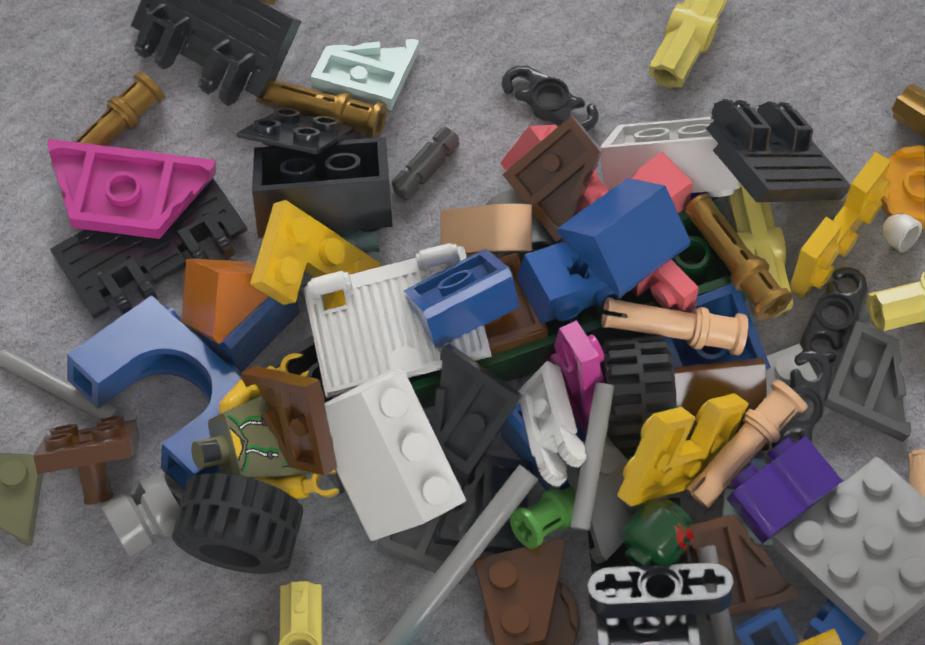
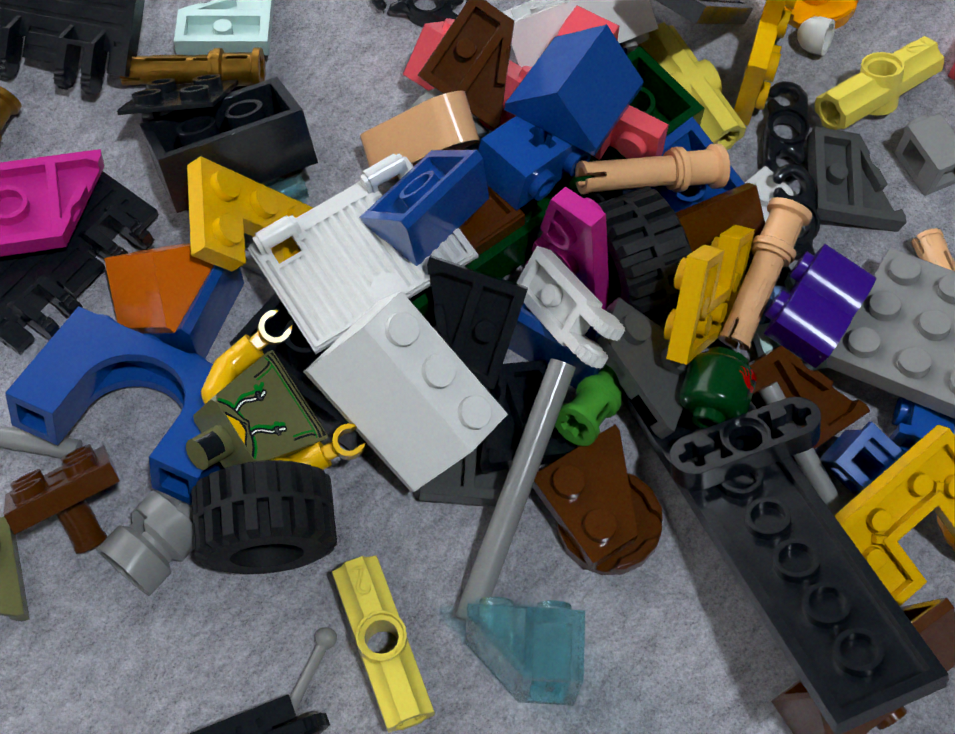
camera: 25 degrees left, 0 degrees up
(296, 418) = (295, 378): reddish brown wing -> none
(425, 163) = (325, 94): dark grey axle -> none
(594, 449) = (625, 312): light grey bar -> none
(748, 271) = (704, 101): pearl gold pin -> none

